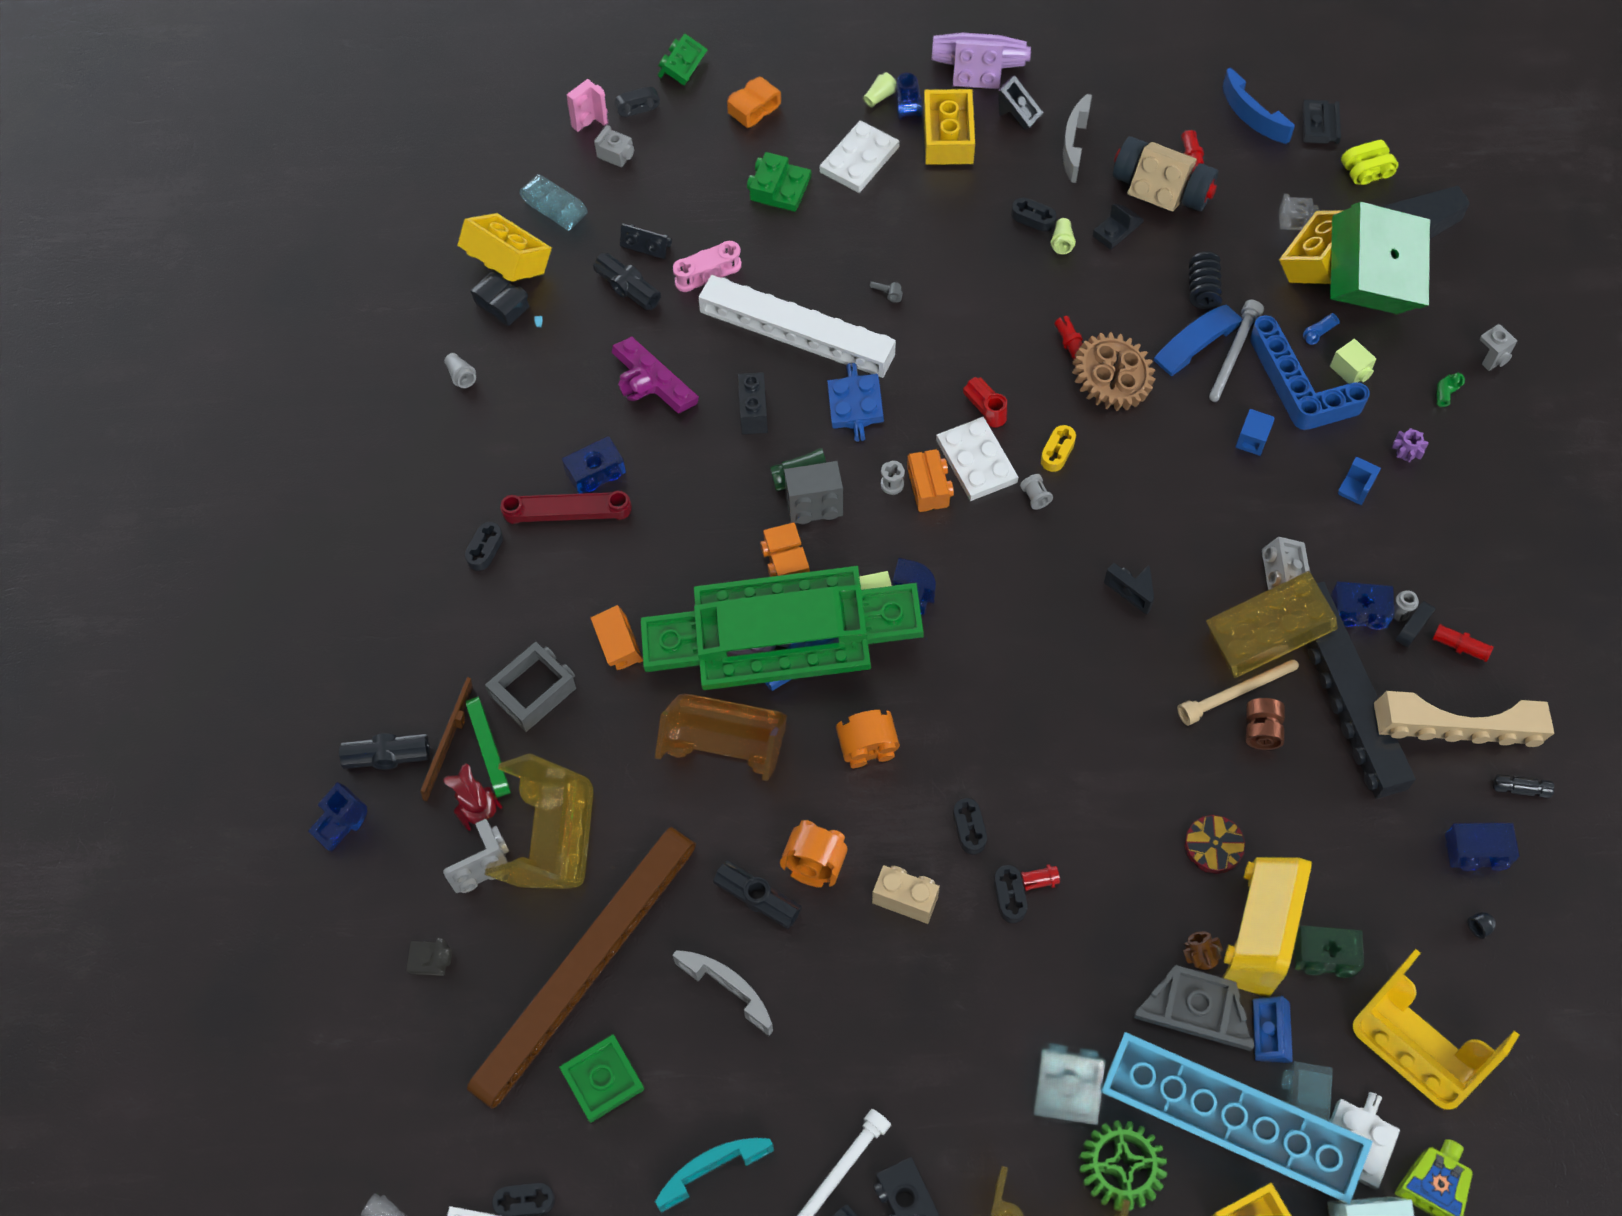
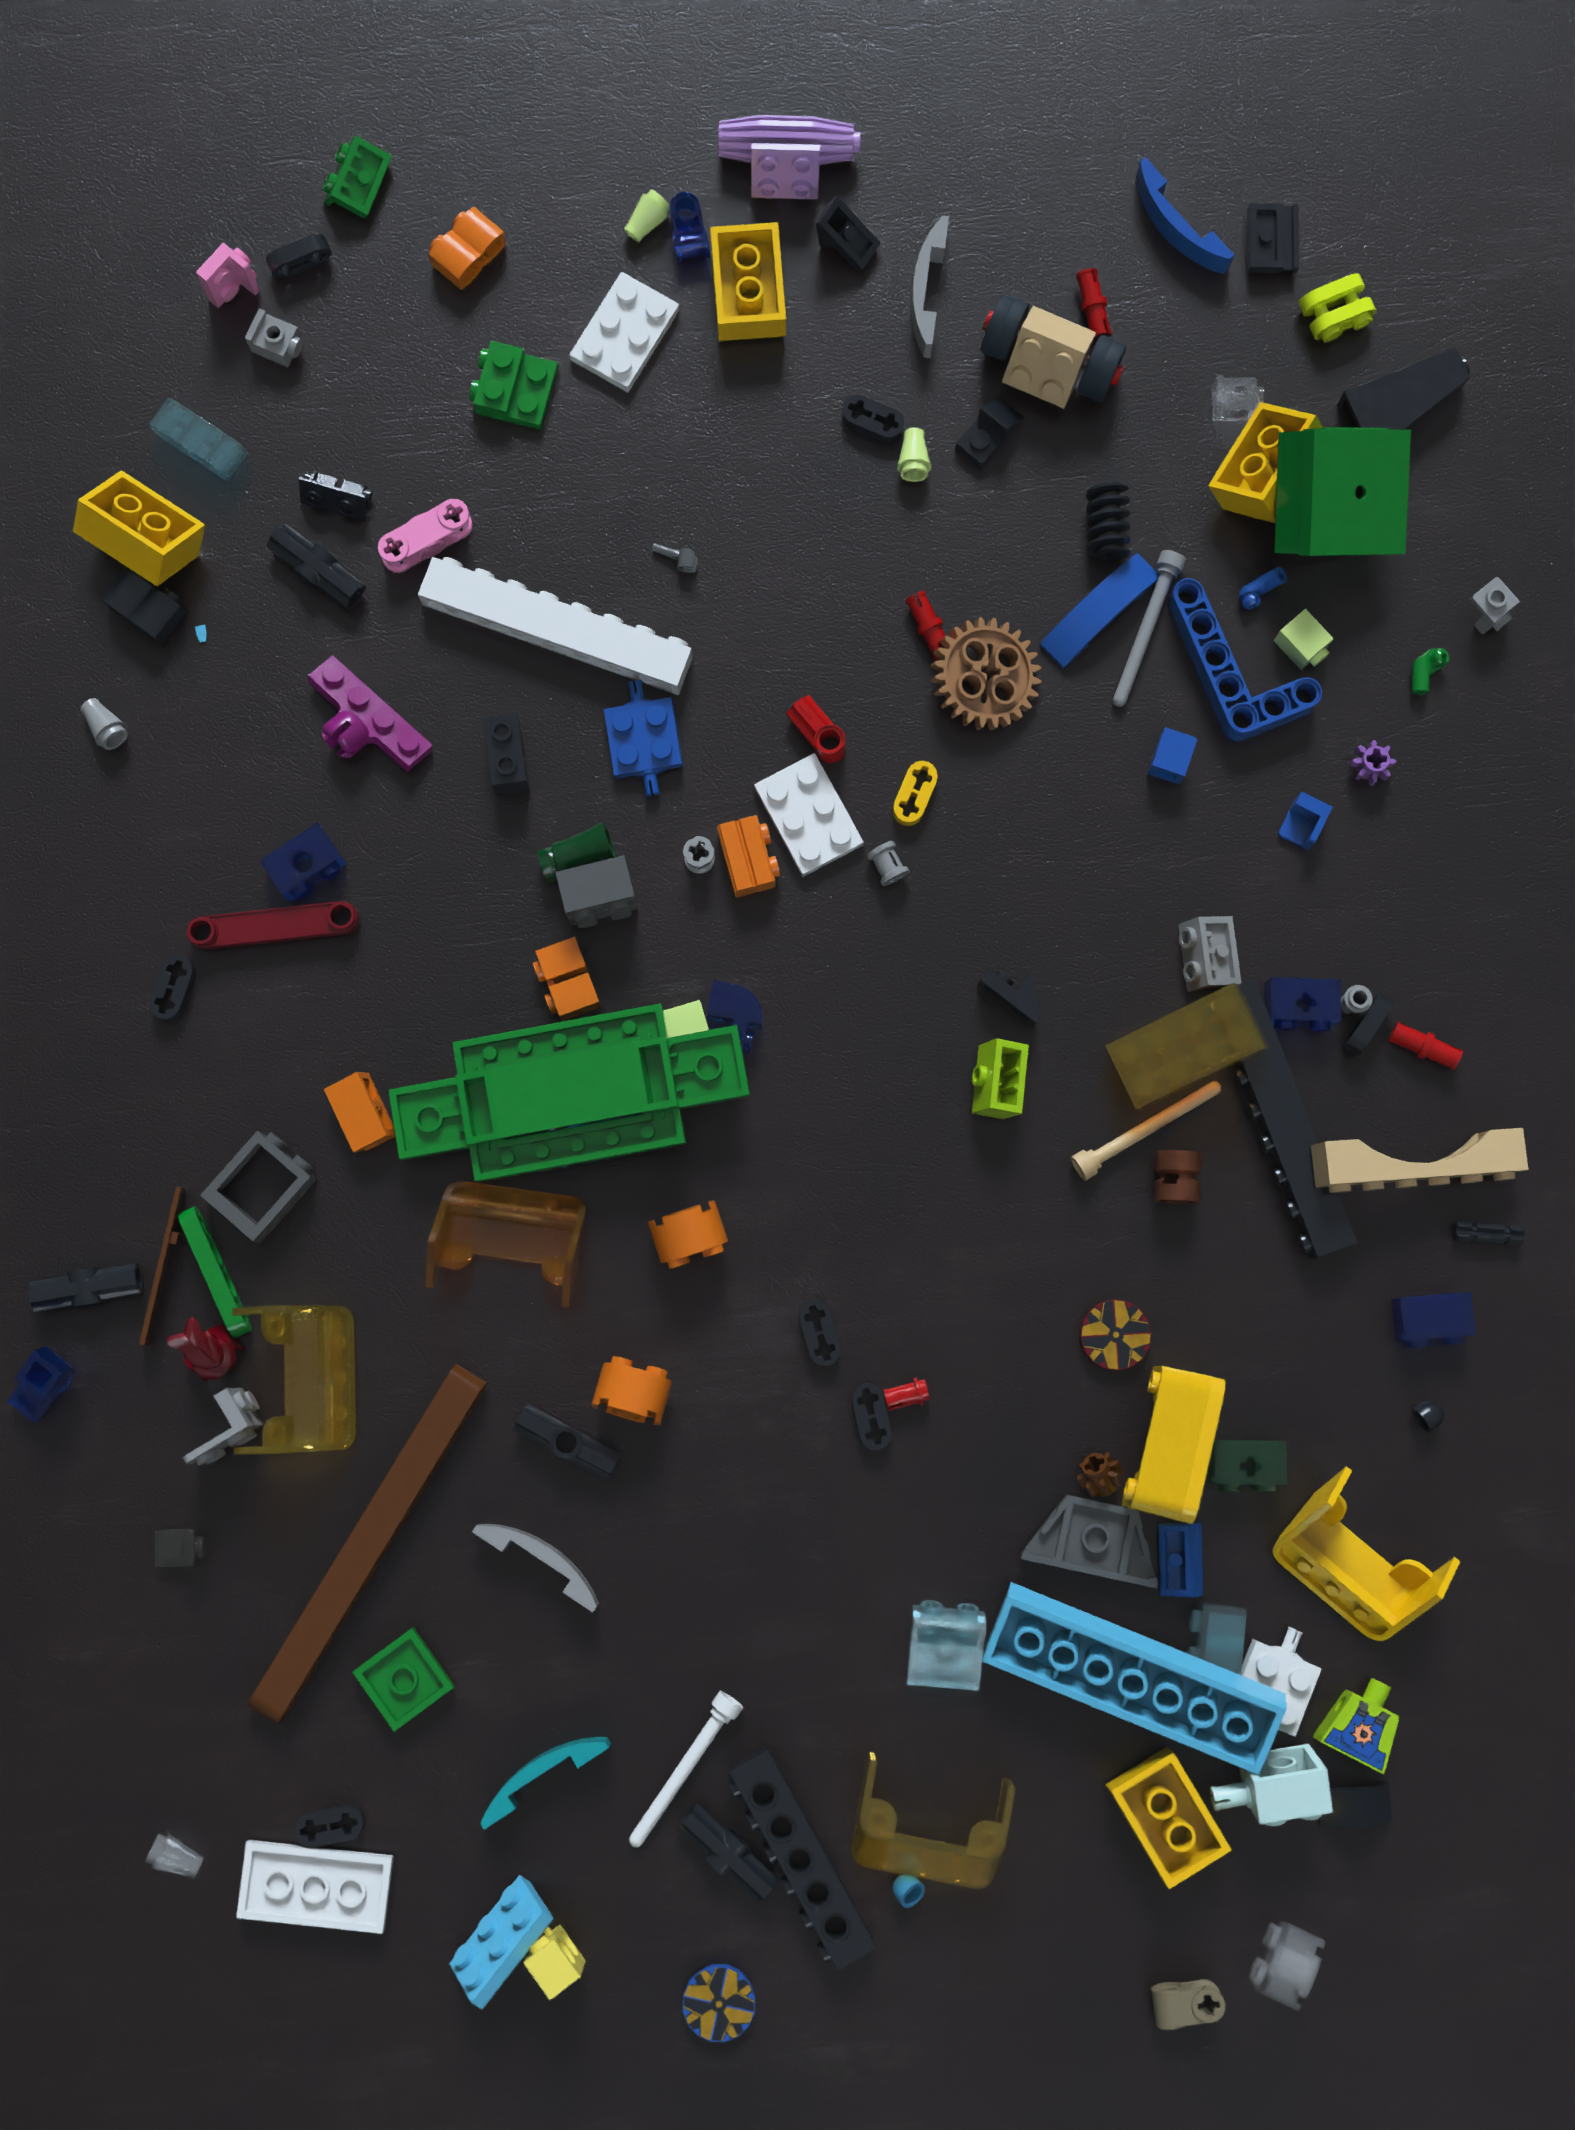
camera: 10 degrees left, 20 degrees up
(906, 893) = (746, 1430): tan brick -> none
(1121, 642) = (999, 1079): none -> lime brick
(1137, 1163) = (1024, 1731): bright green gear -> none

